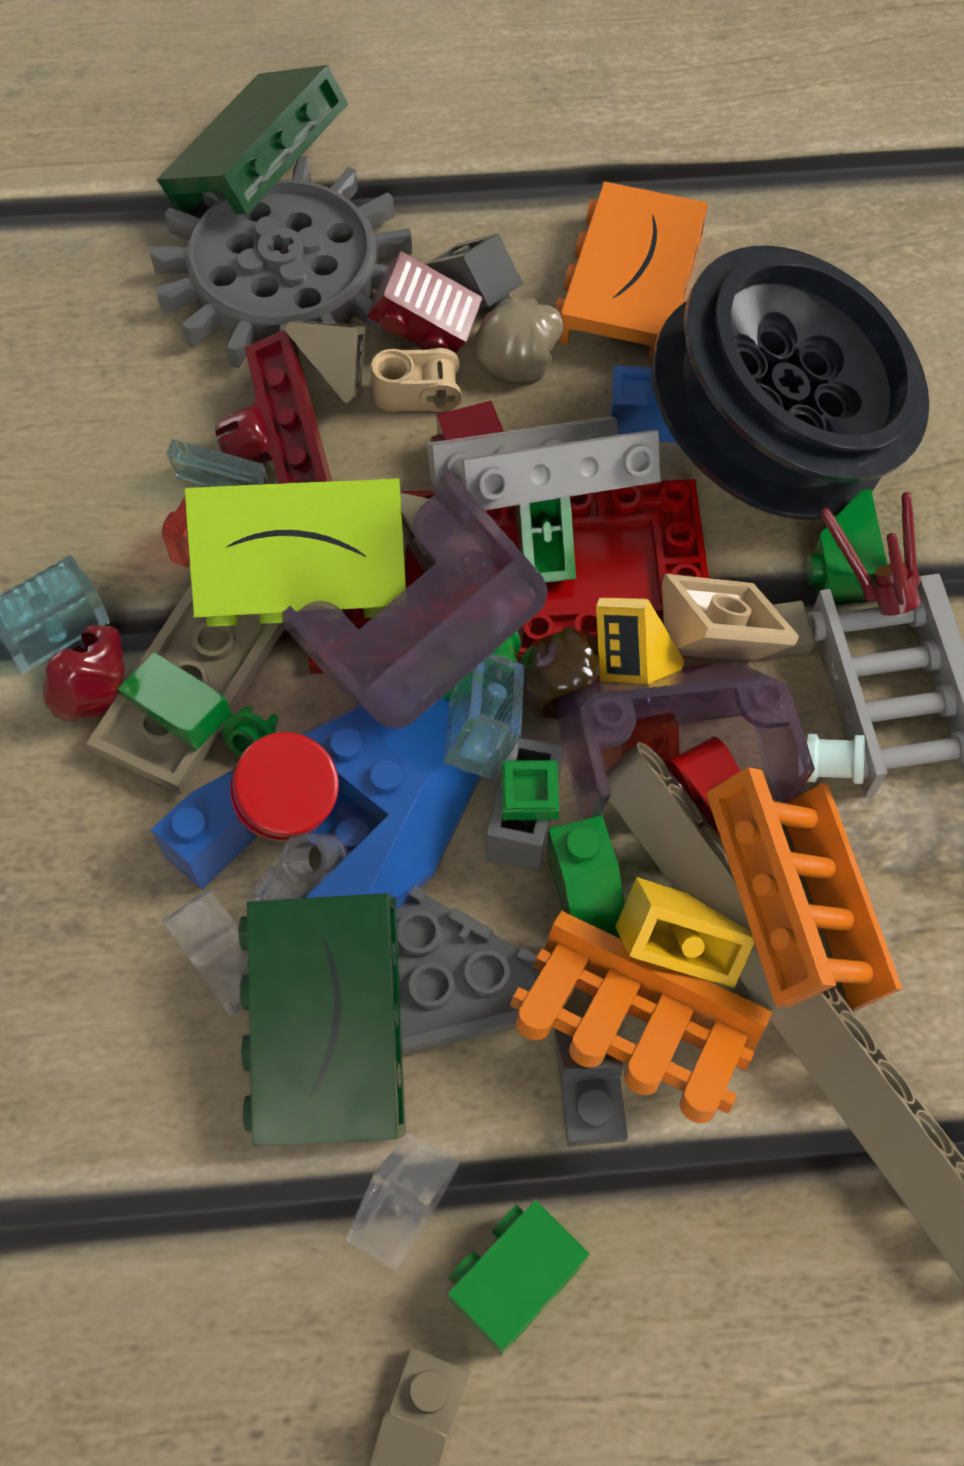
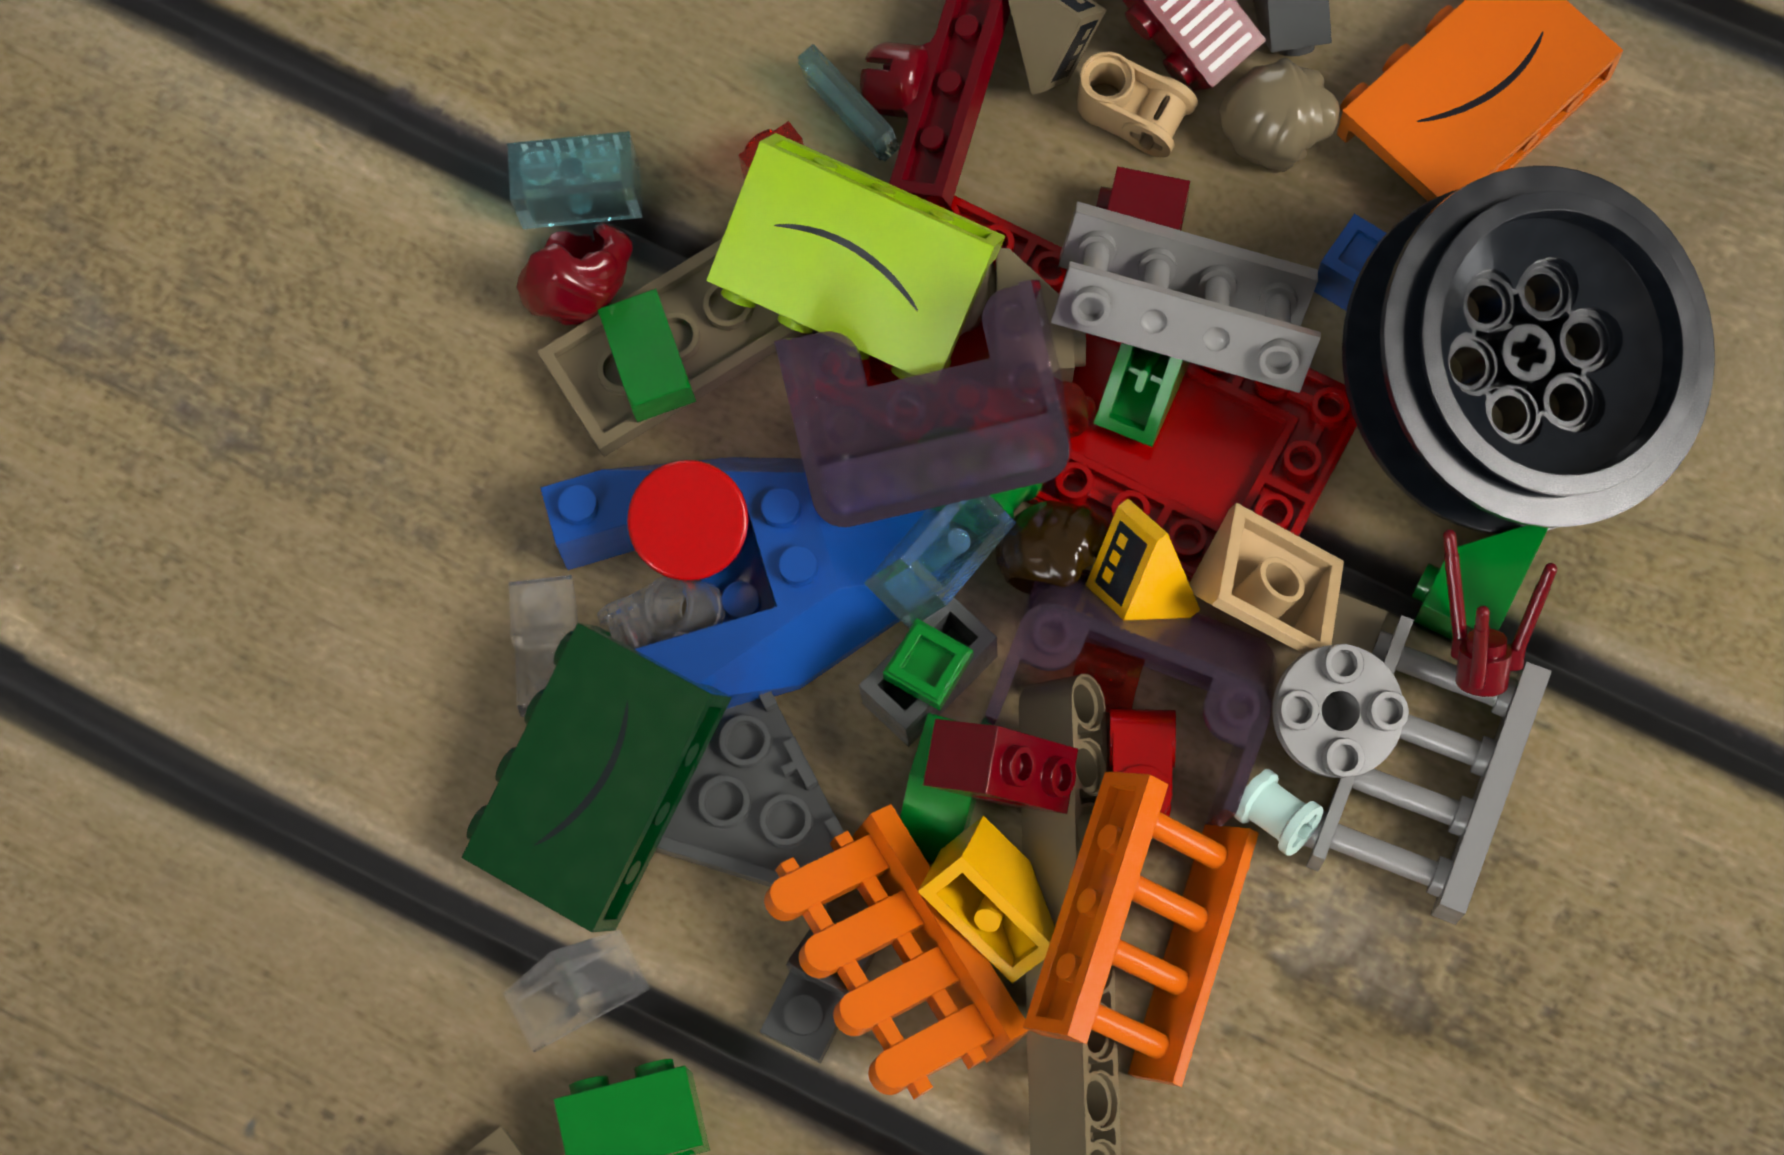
camera: 40 degrees right, 10 degrees up
(245, 728) = (702, 433): green plate -> none
(633, 827) = (1001, 766): none -> dark red brick
(830, 667) = (1338, 711): none -> light grey plate

